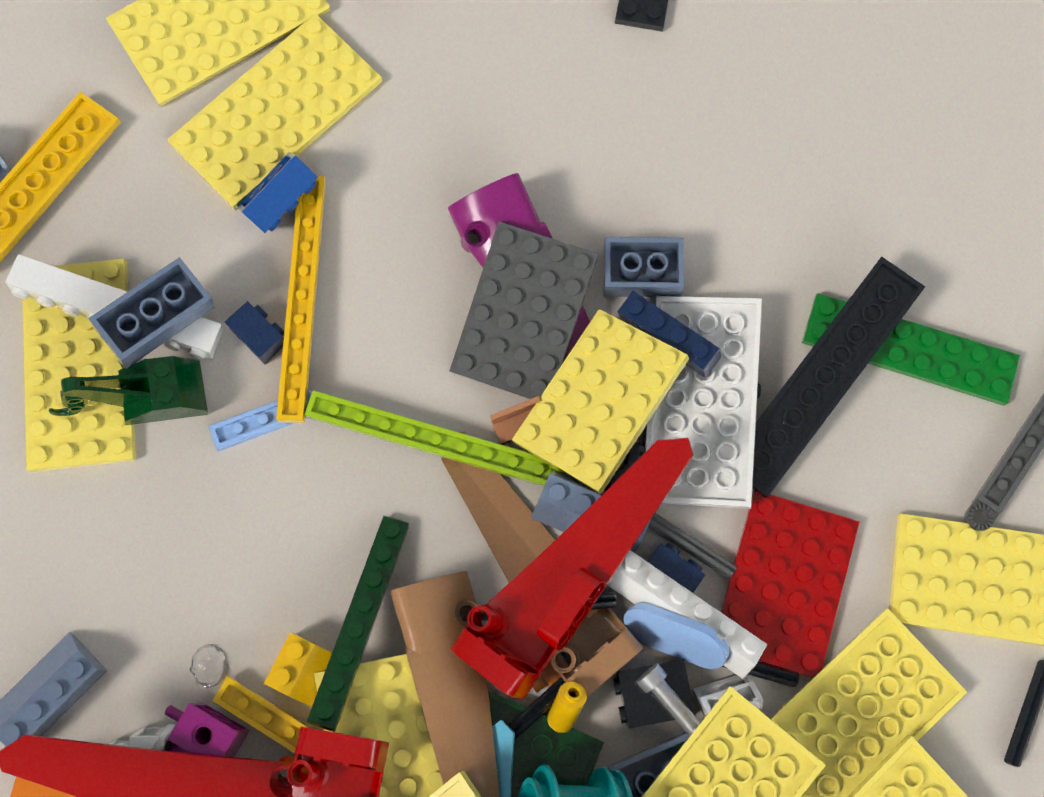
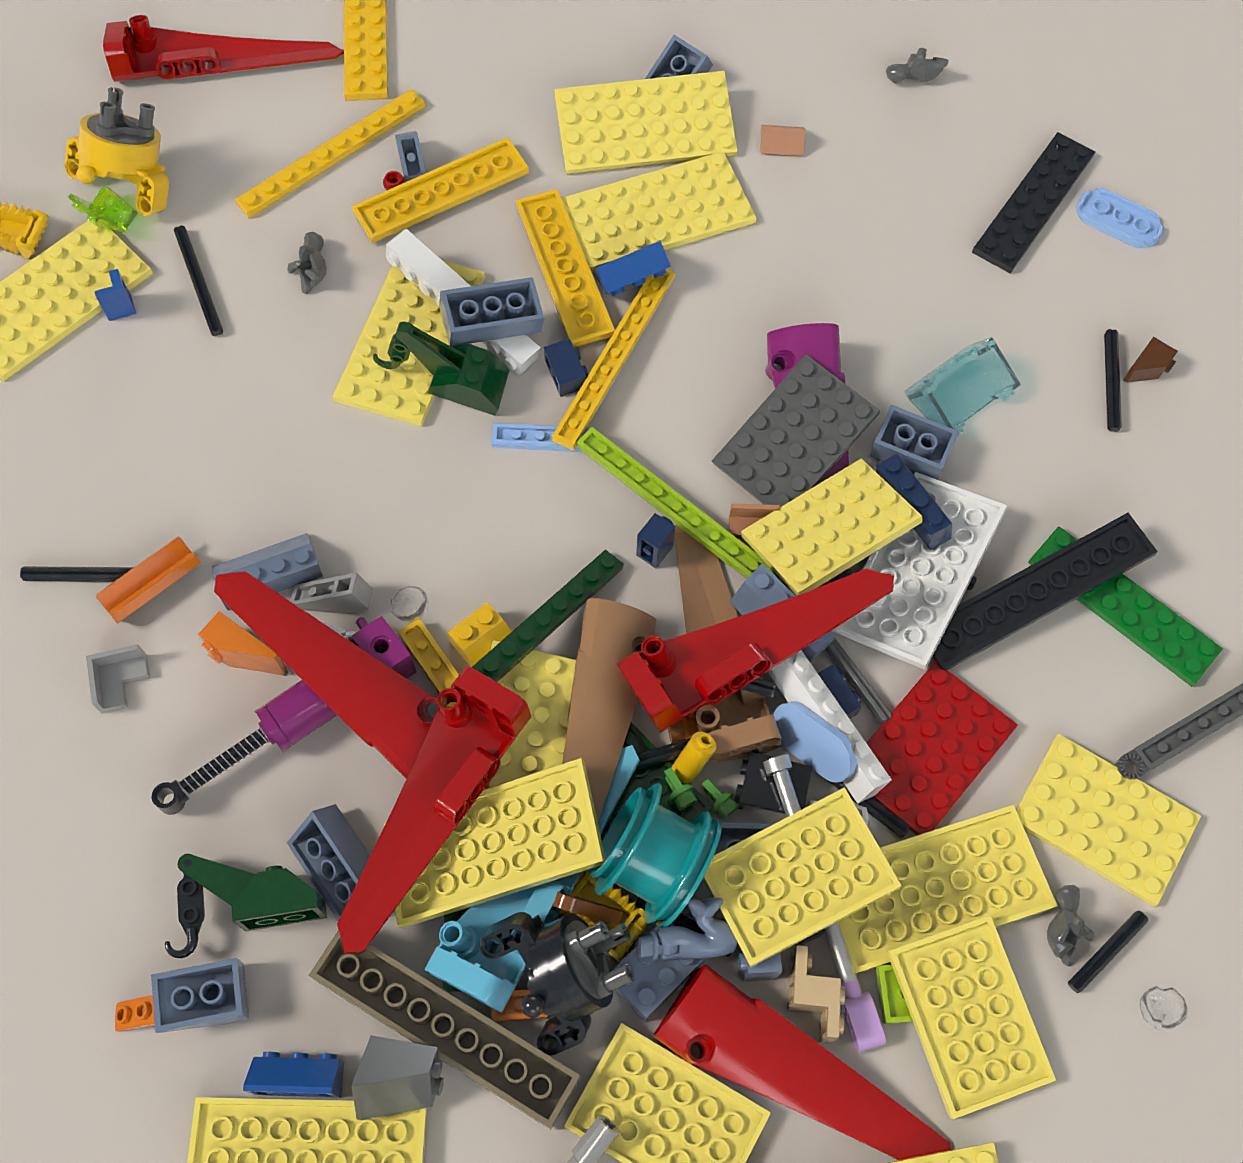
camera: 20 degrees right, 10 degrees down
(127, 690) = (334, 594): none -> light grey slope
(206, 218) = (565, 268): none -> yellow plate
(430, 487) = (655, 540): none -> dark blue brick
(571, 749) = (682, 794): none -> bright green piece
(614, 733) = (724, 803): none -> bright green piece
(665, 181) = (964, 385): none -> clear light blue windscreen
(808, 110) = (1112, 372): none -> black axle
(839, 74) = (1152, 362): none -> reddish brown slope
(982, 707) = (1066, 926): none -> dark grey animal

